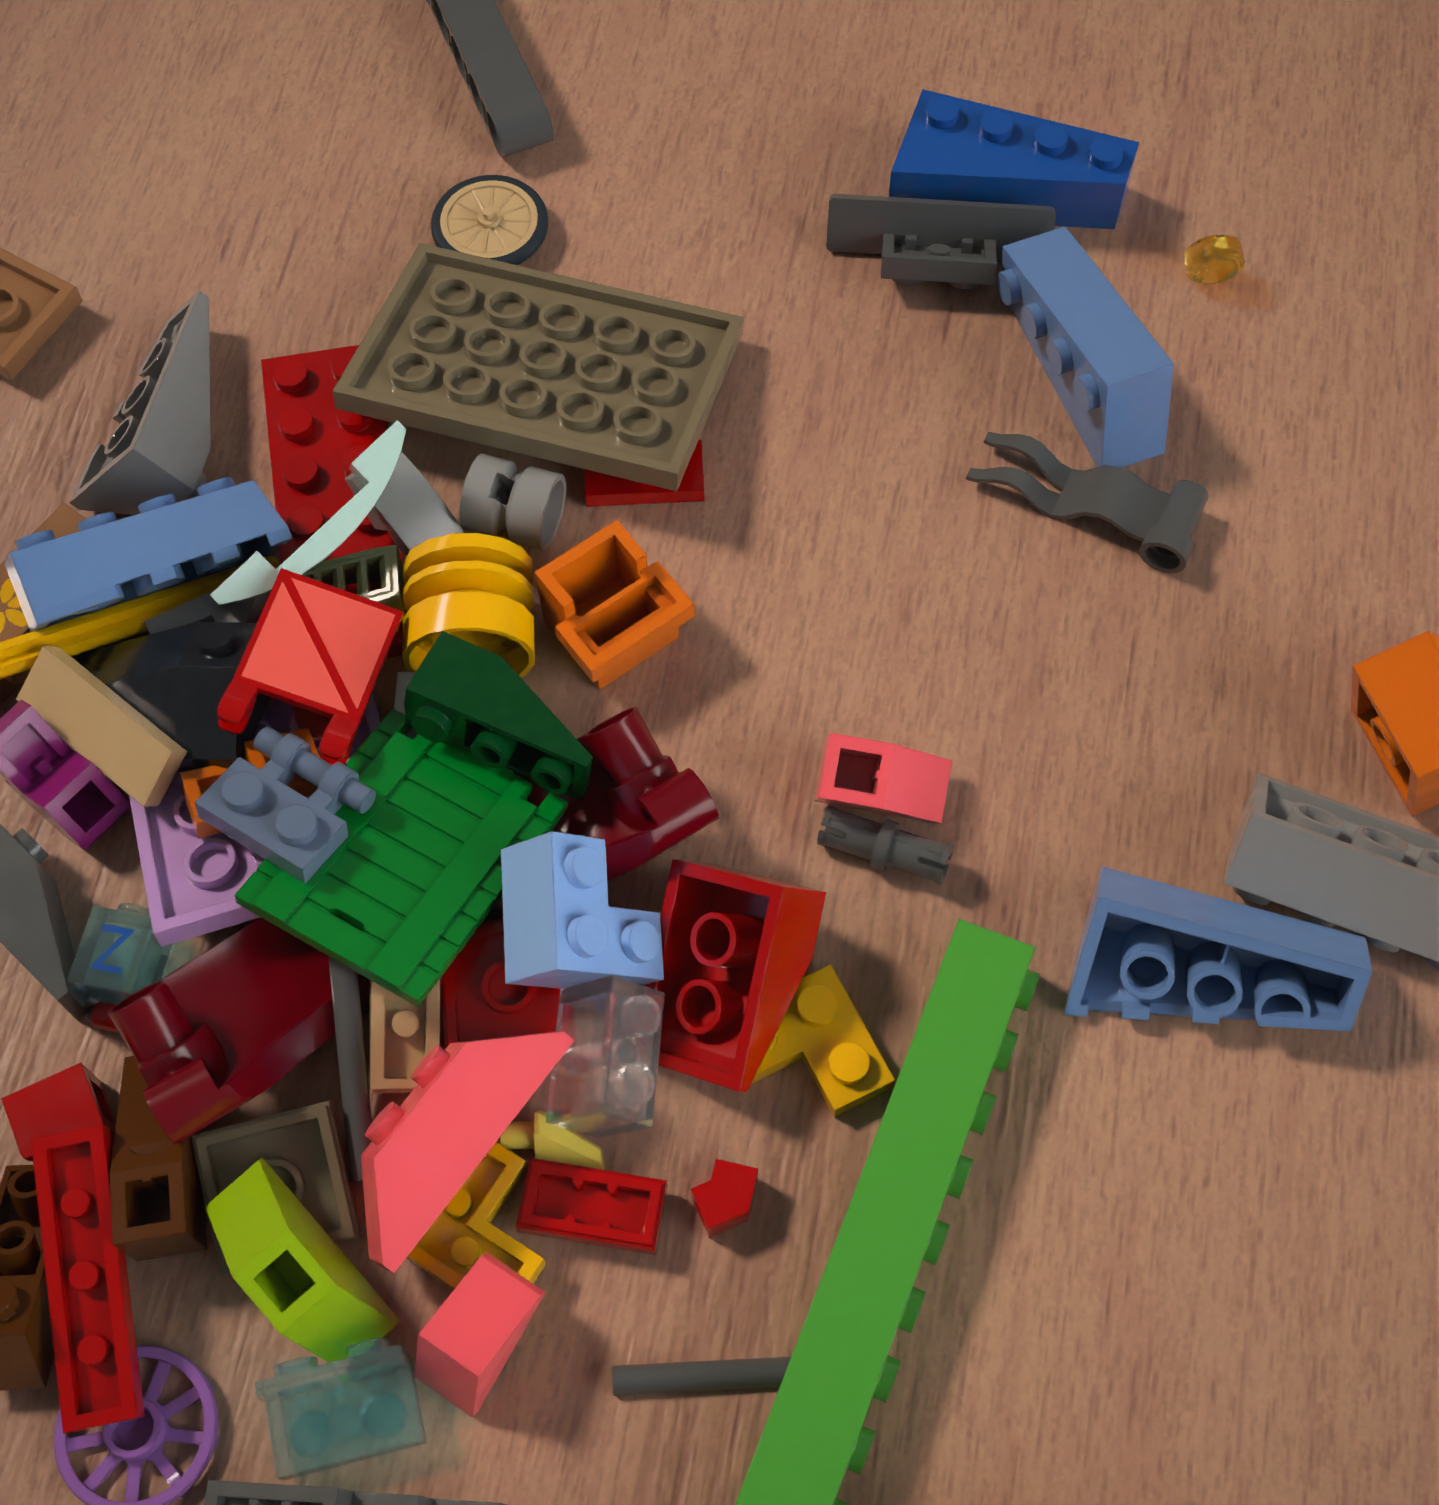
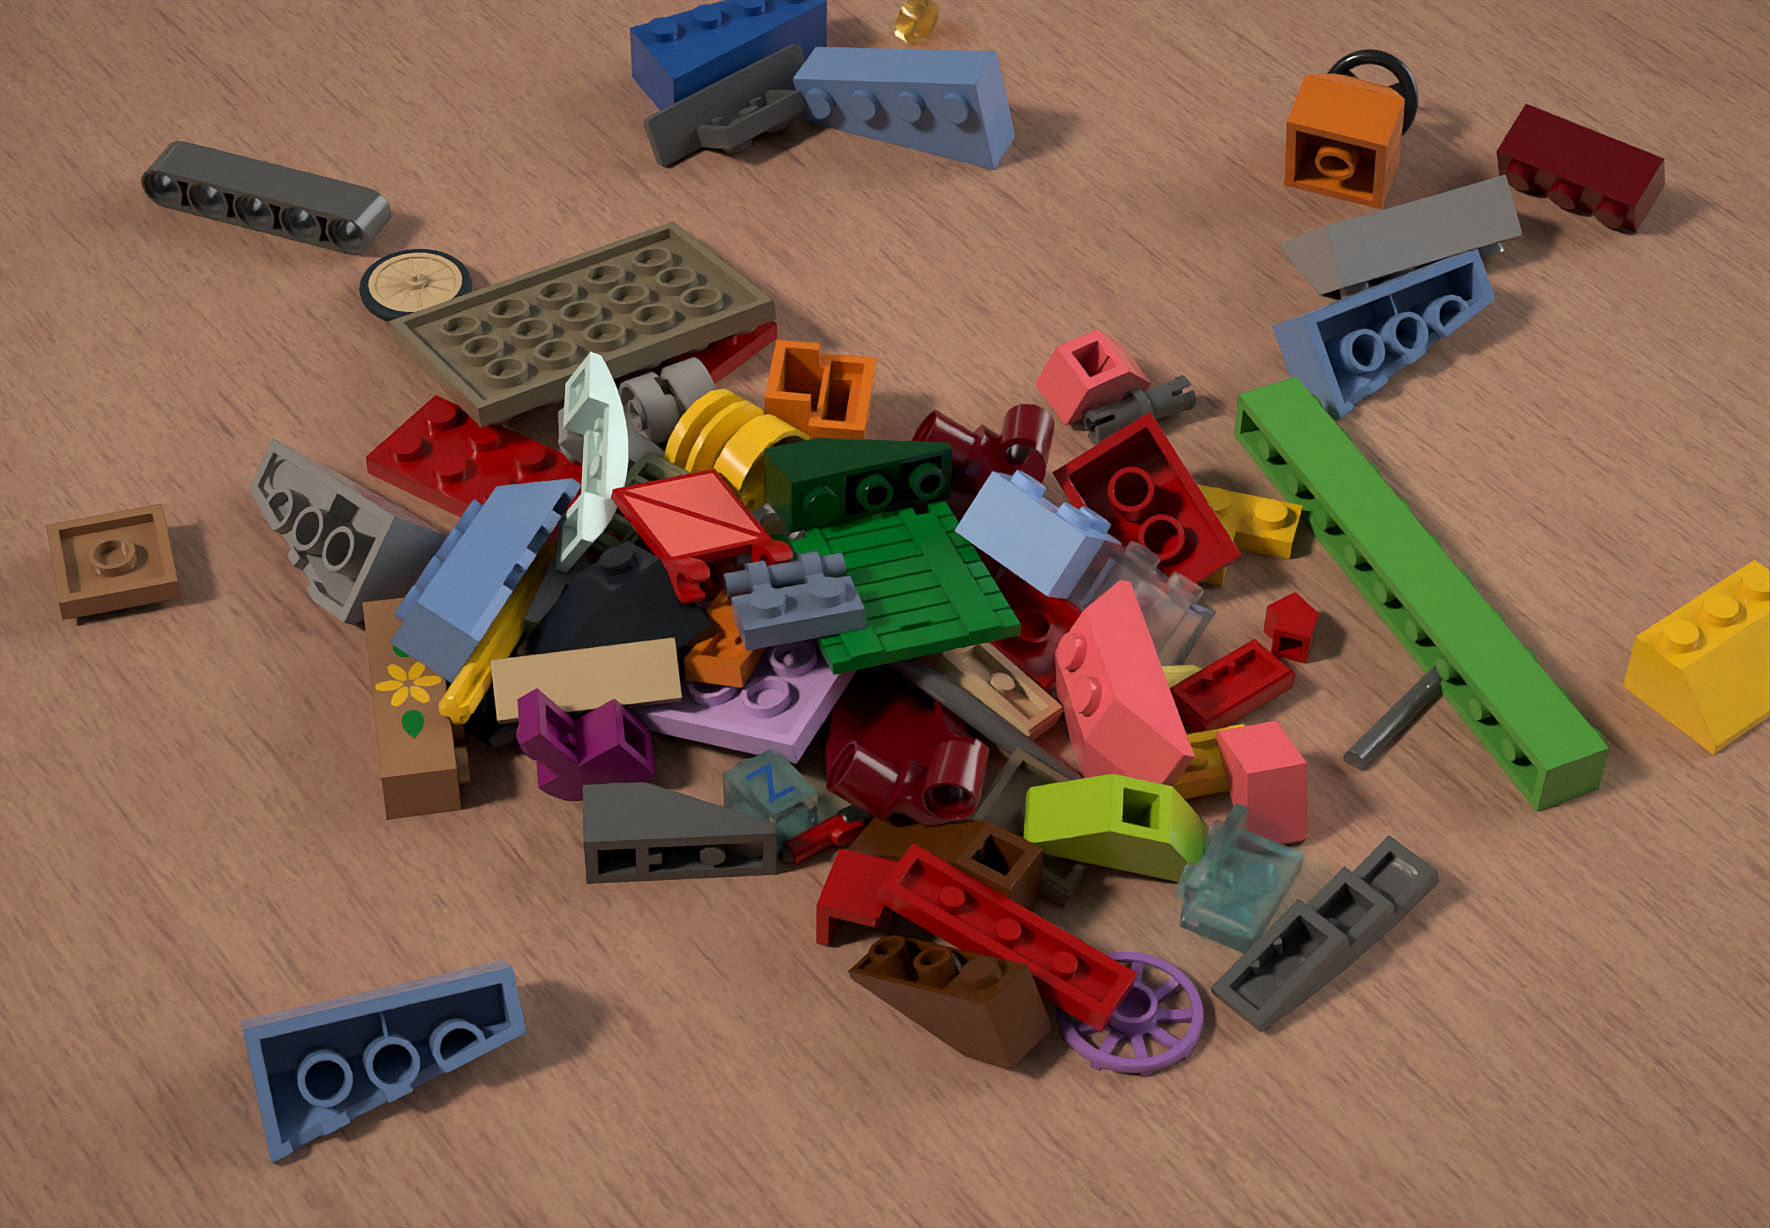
camera: 50 degrees left, 20 degrees down
(1107, 492) = (1064, 159): dark grey flag -> none

